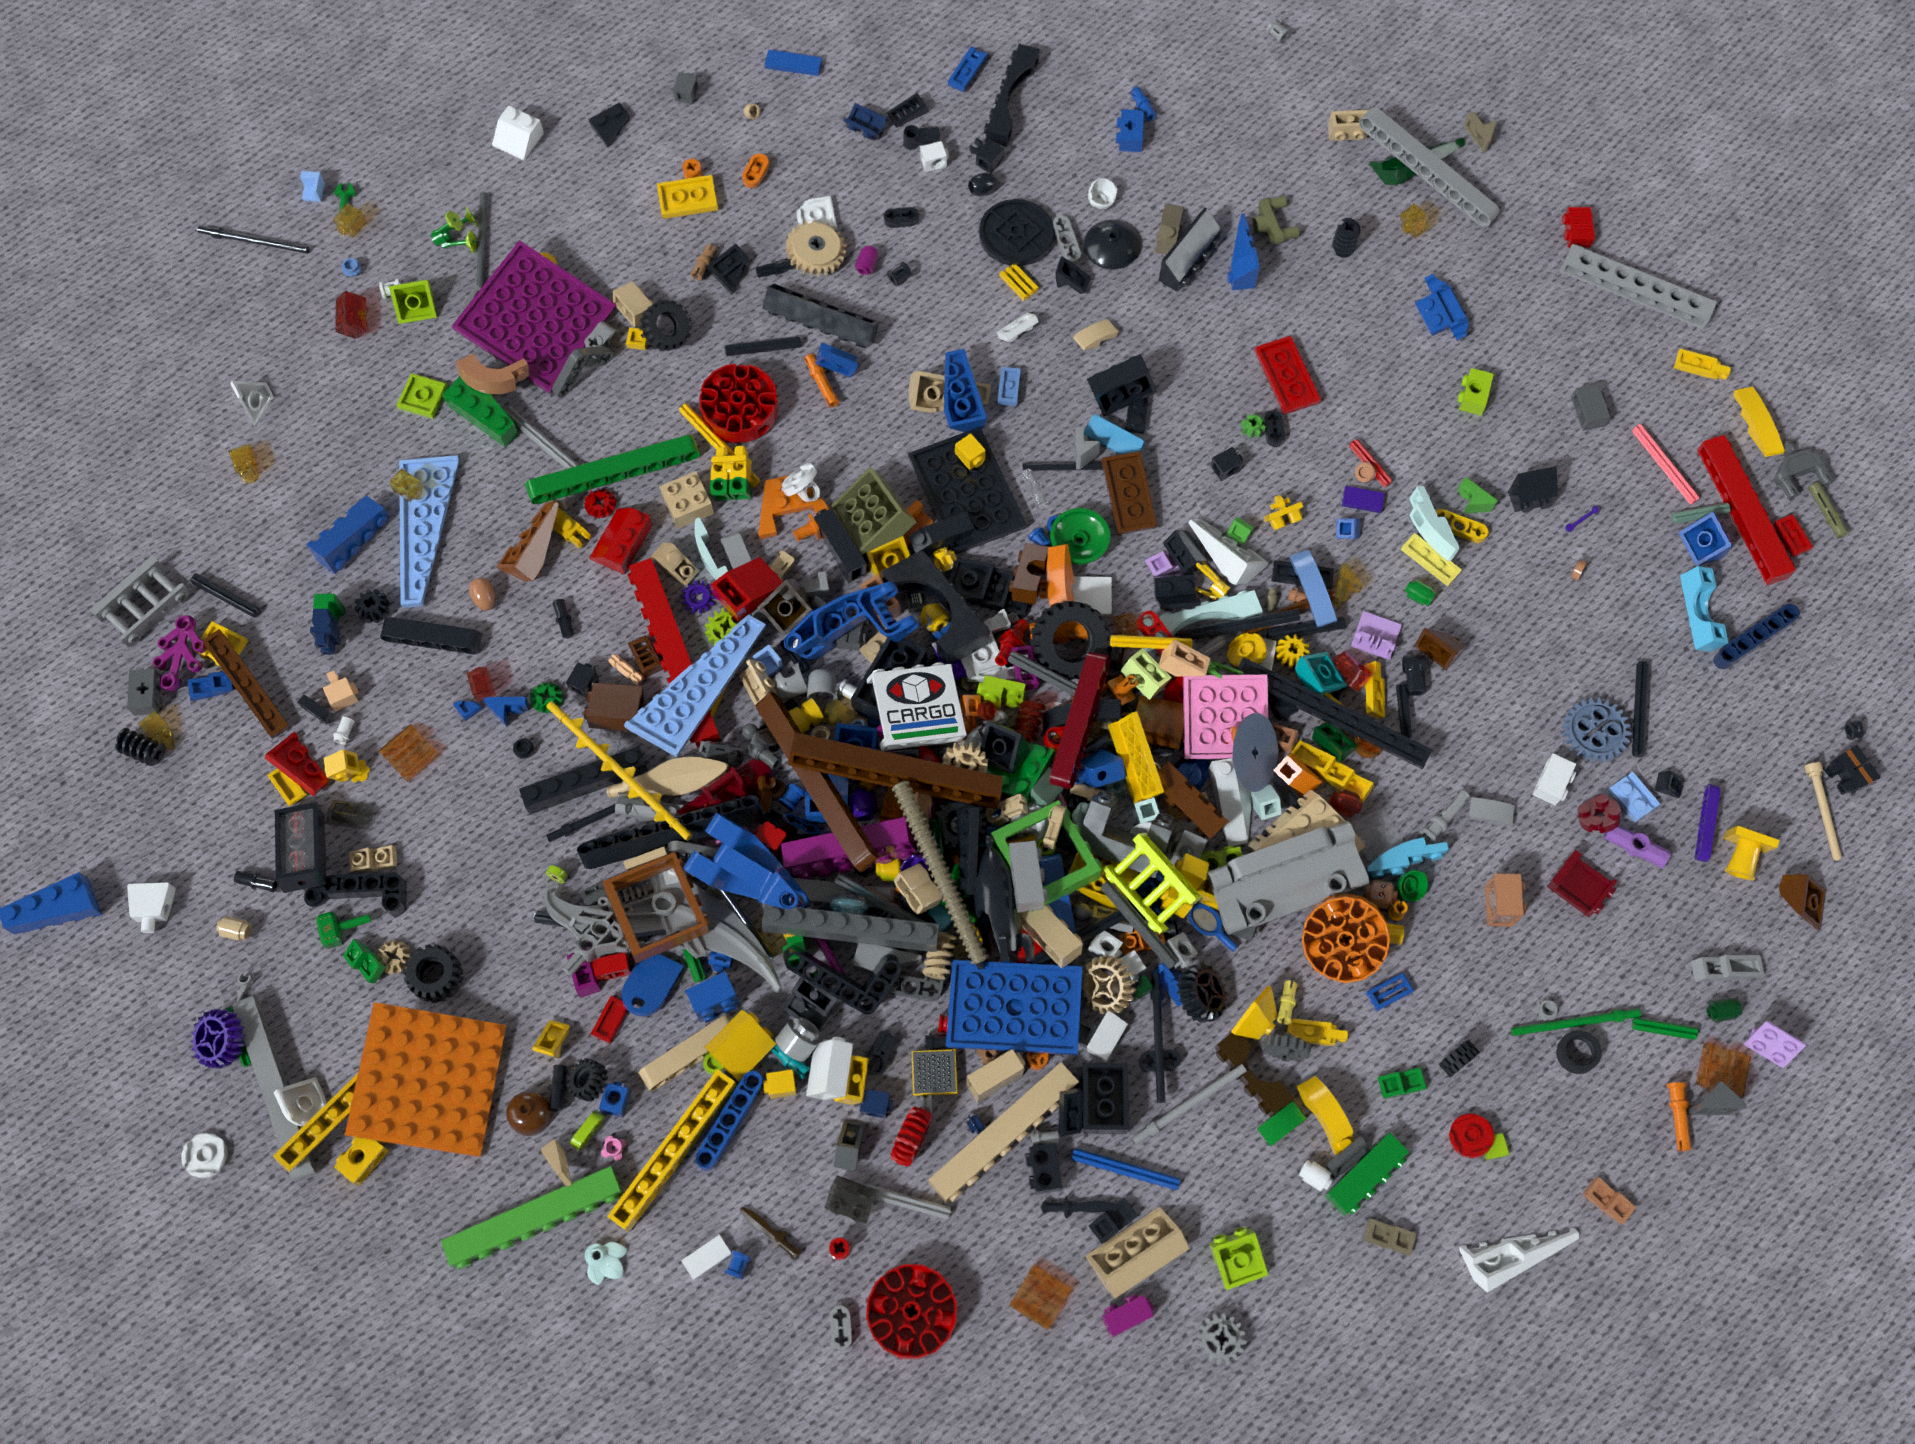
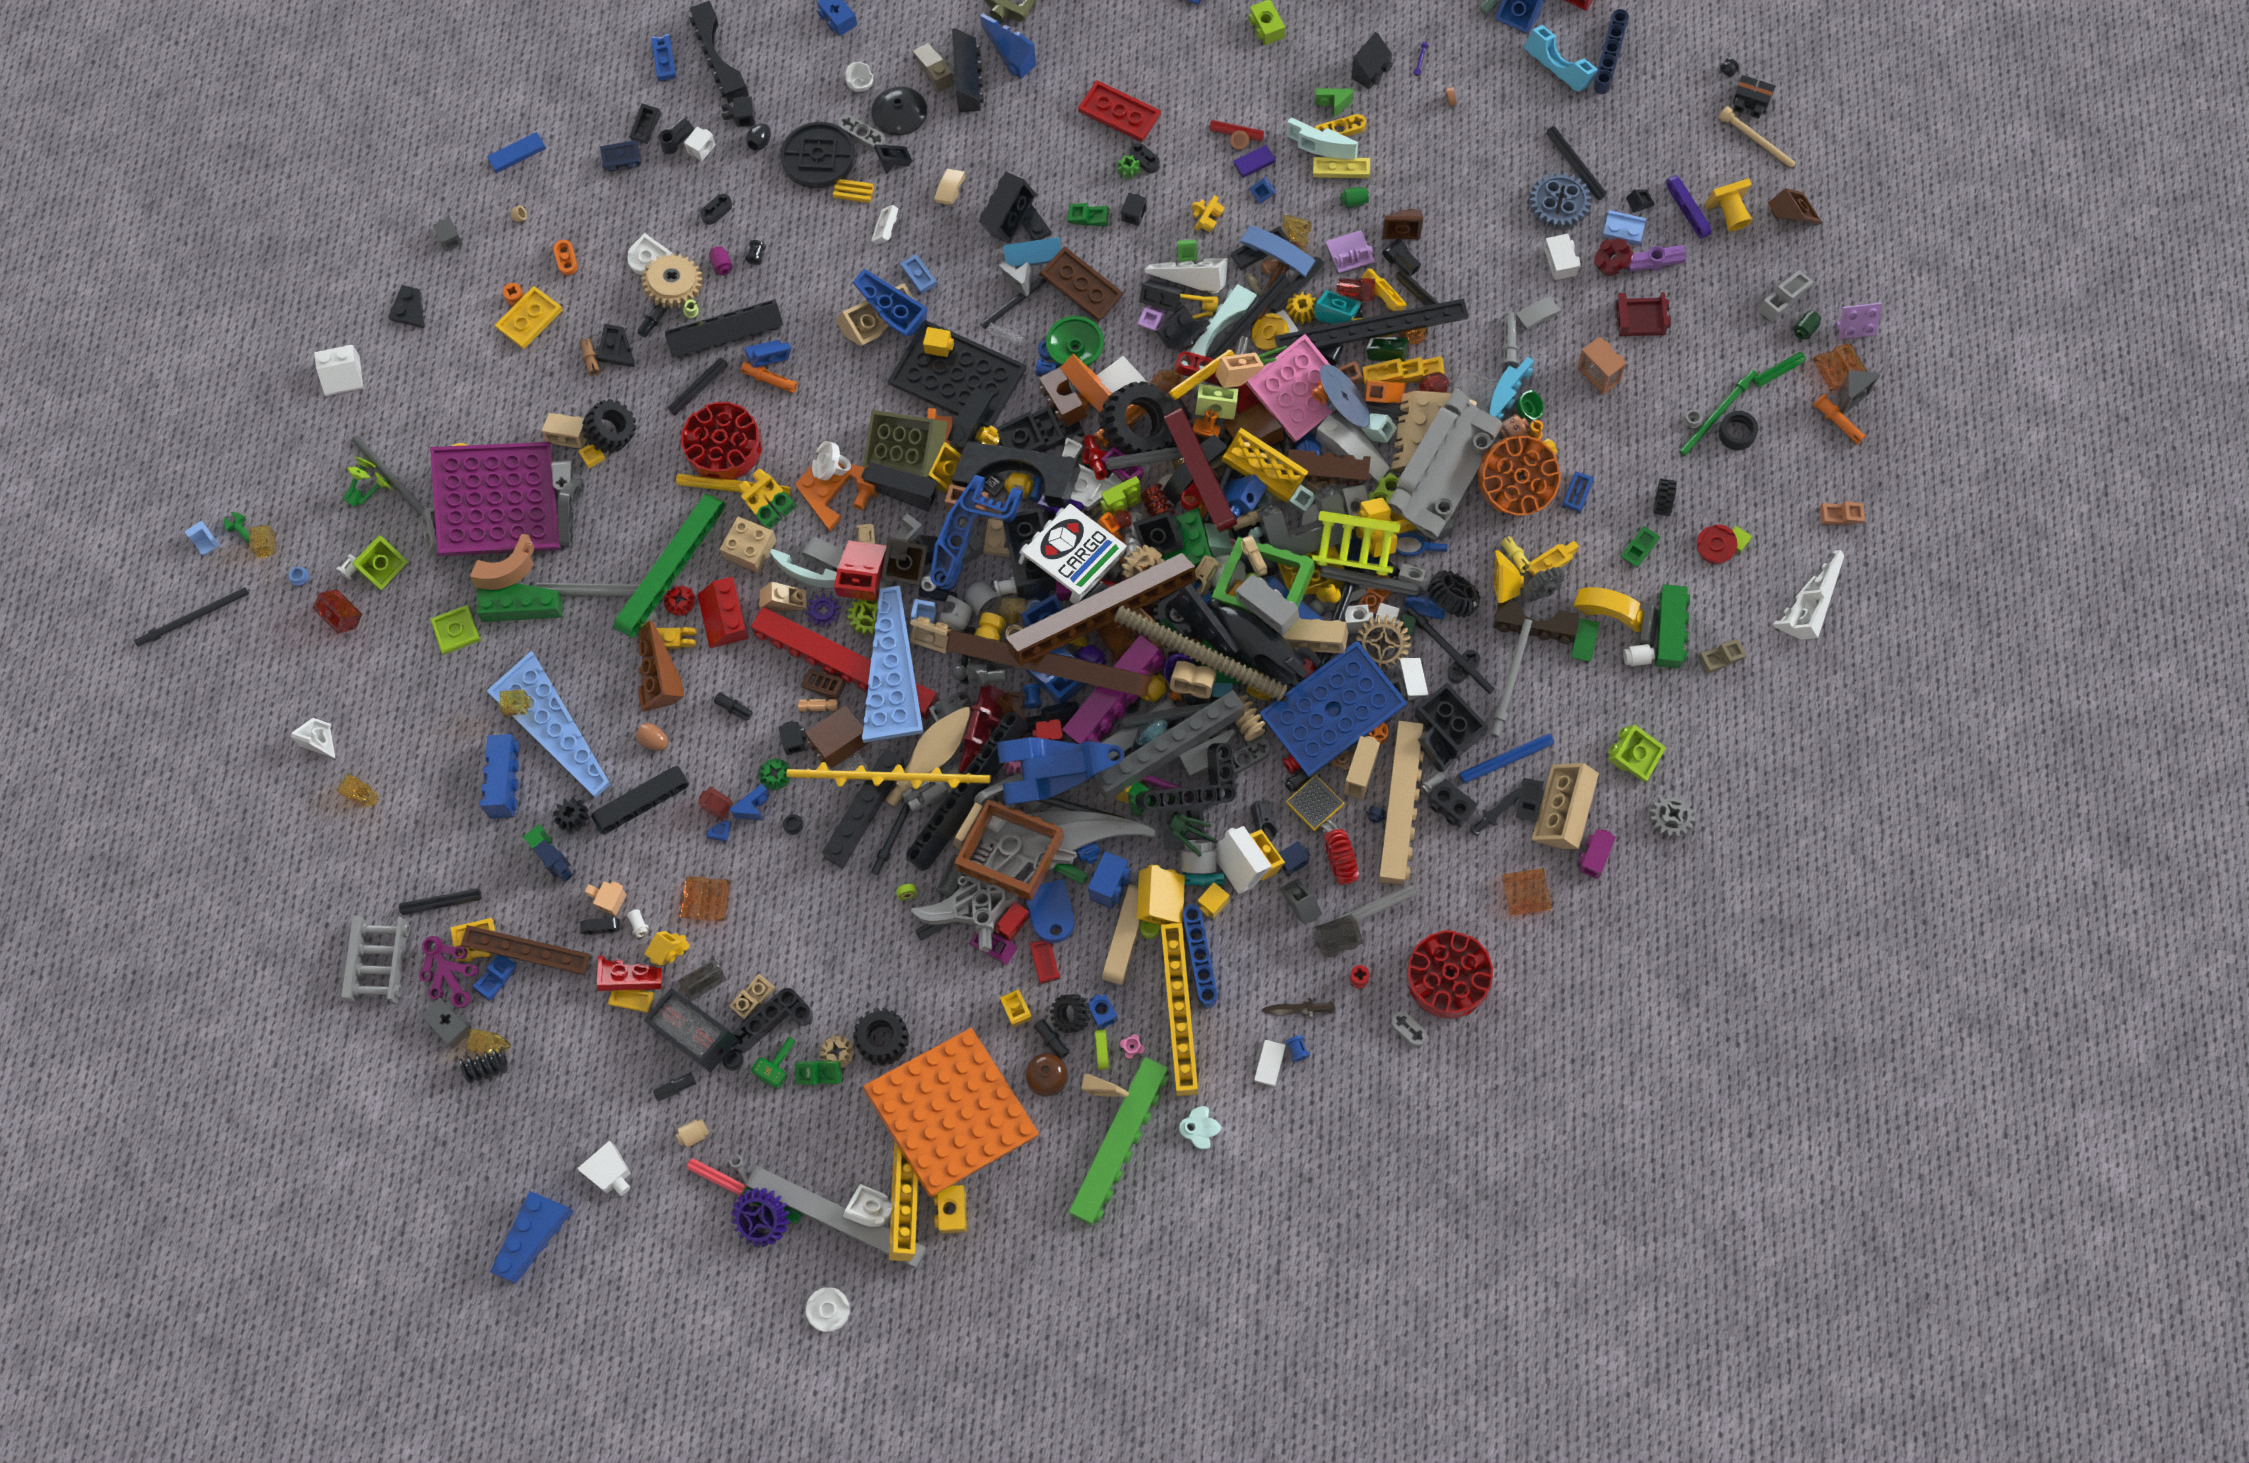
camera: 35 degrees left, 0 degrees up
(220, 977) = (716, 1177): none -> coral axle
(803, 1000) = (1180, 825): none -> dark green plant
(809, 276) = (690, 309): none -> yellowish green pin
(1096, 908) = (1328, 594): none -> yellow arm
(1184, 439) = (1085, 215): none -> green slope

